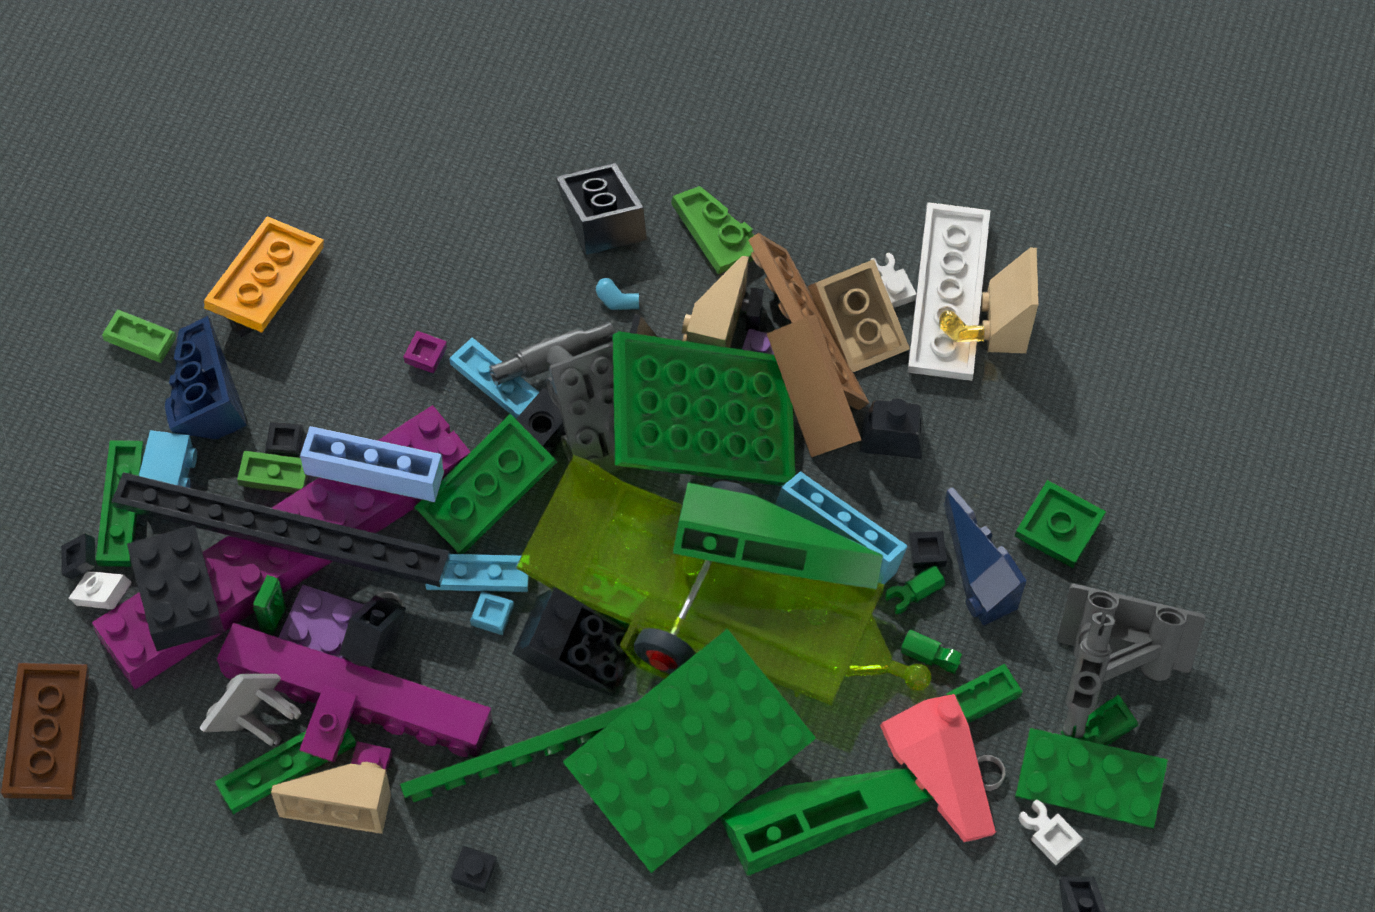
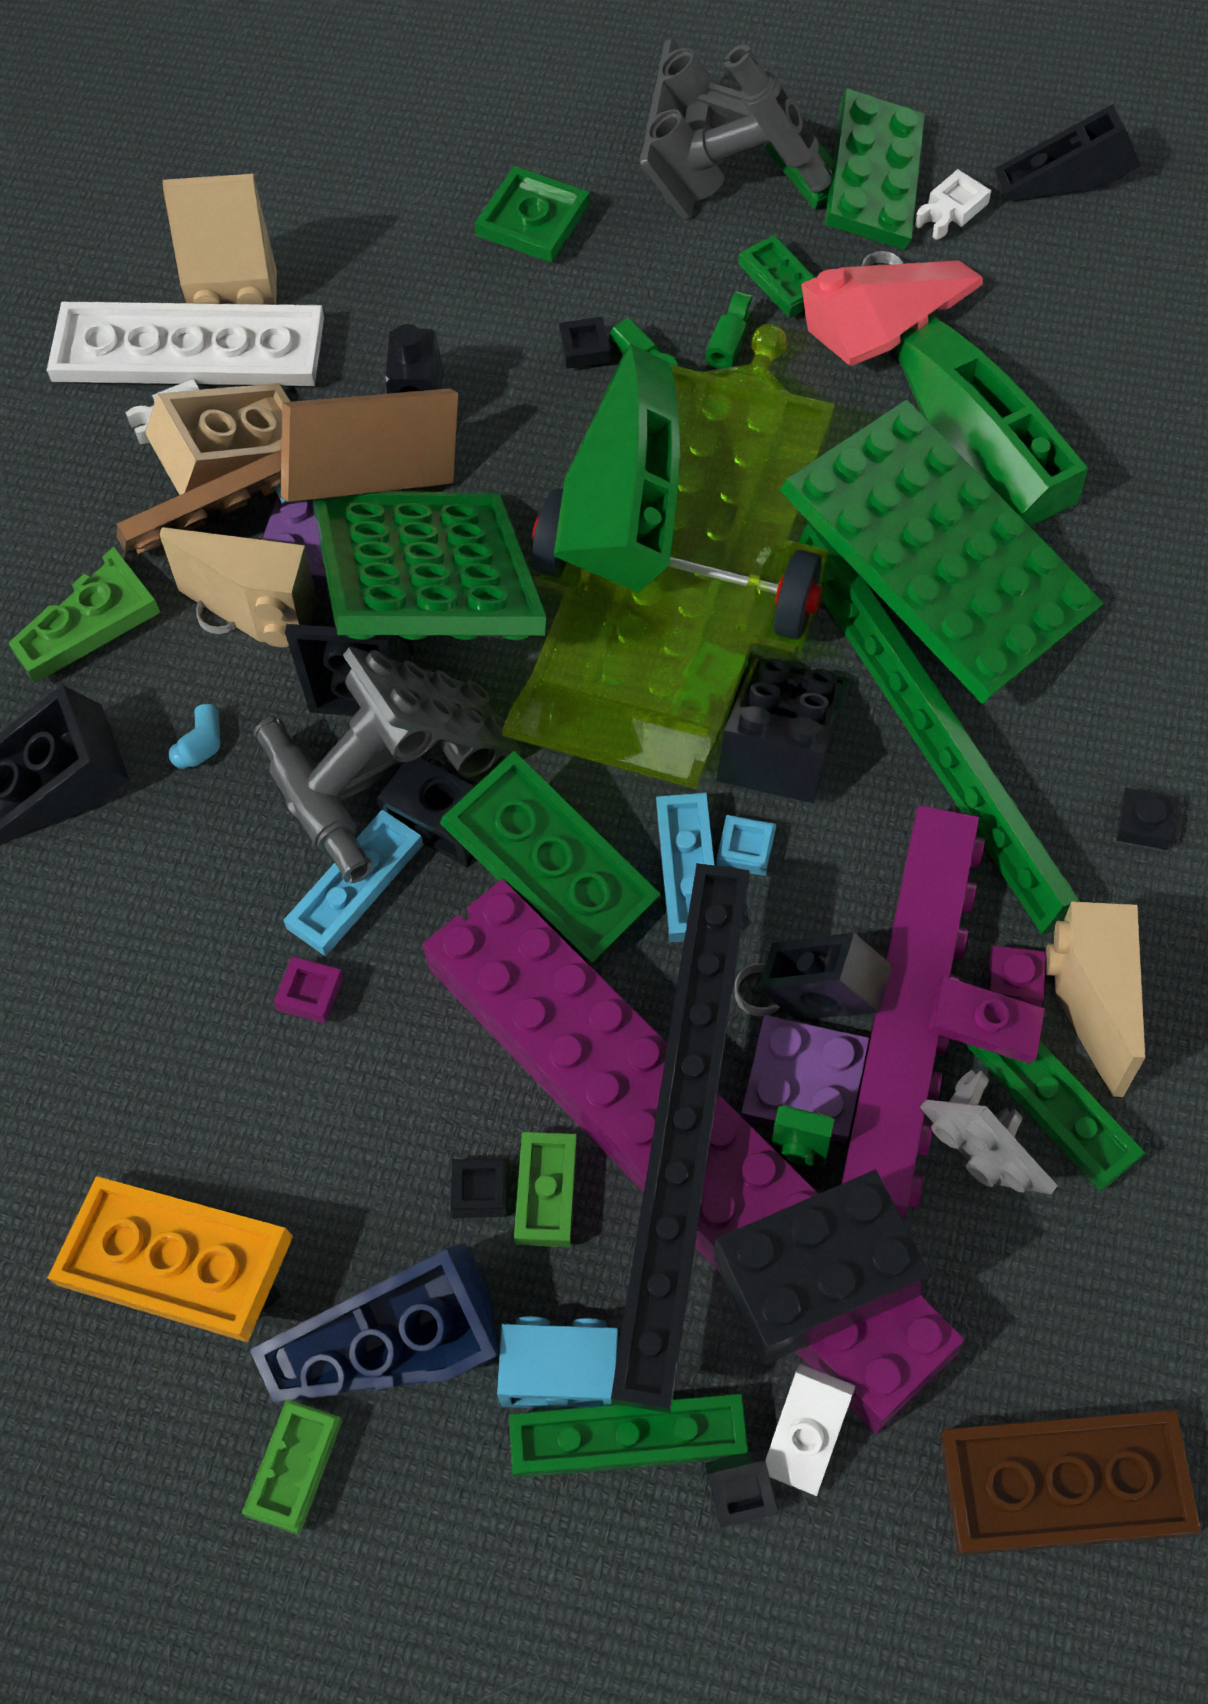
camera: 90 degrees left, 0 degrees up
(372, 464) = (560, 989): light blue brick -> none
(817, 504) = (552, 439): medium azure brick -> none
(958, 330) = (256, 317): clear yellow arm -> none
(988, 573) = (610, 277): dark blue wedge -> none

